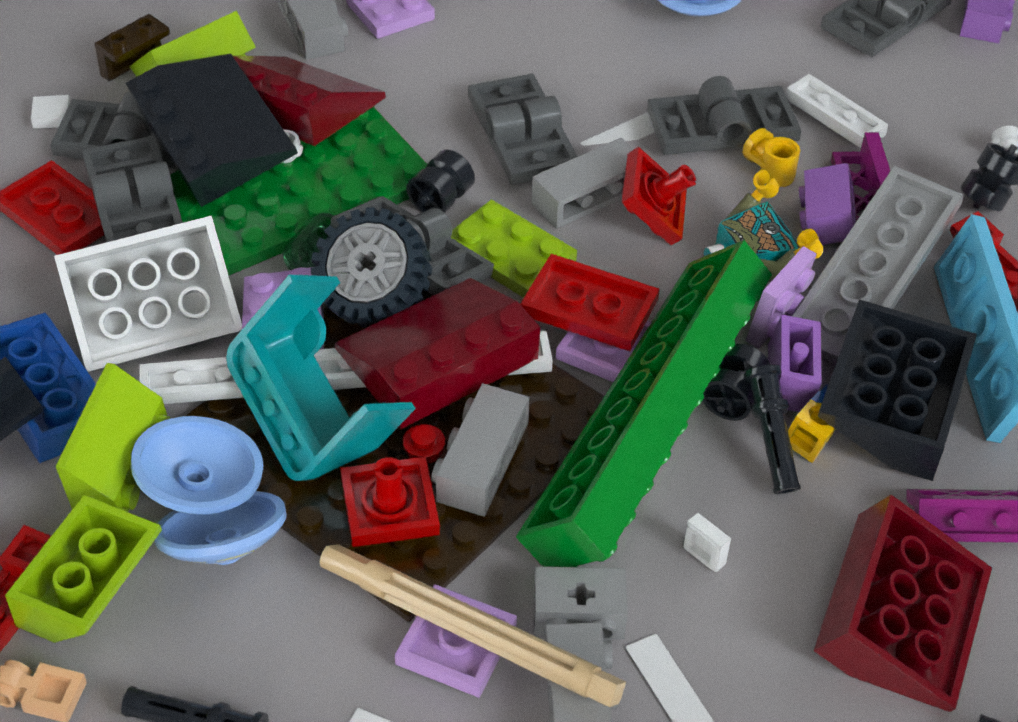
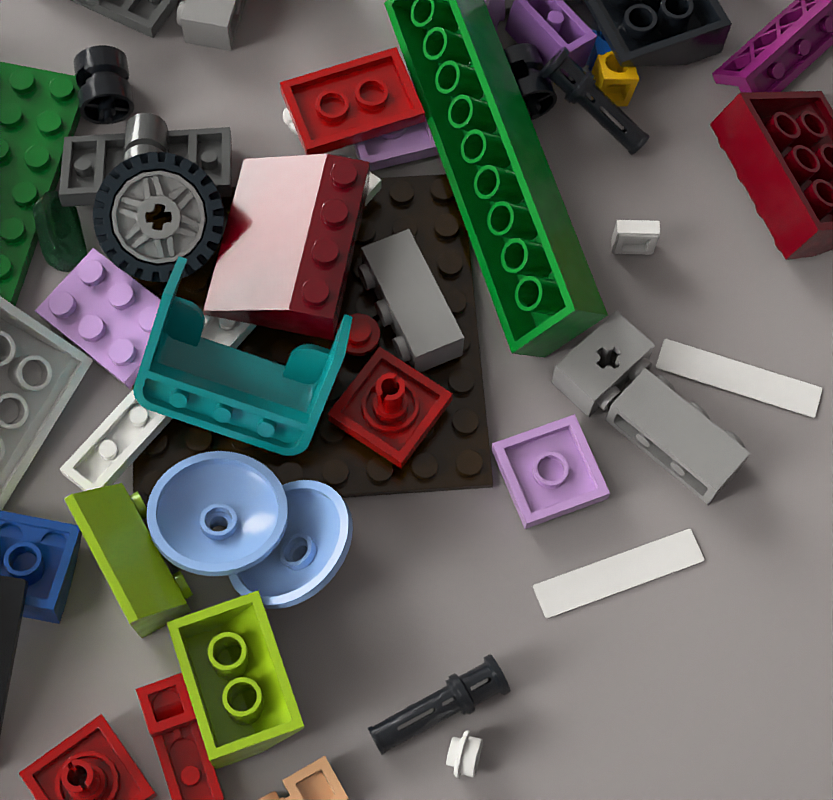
camera: 45 degrees left, 20 degrees up
(475, 625) = (561, 453): tan piece -> none
(510, 243) = (222, 95): lime plate -> none

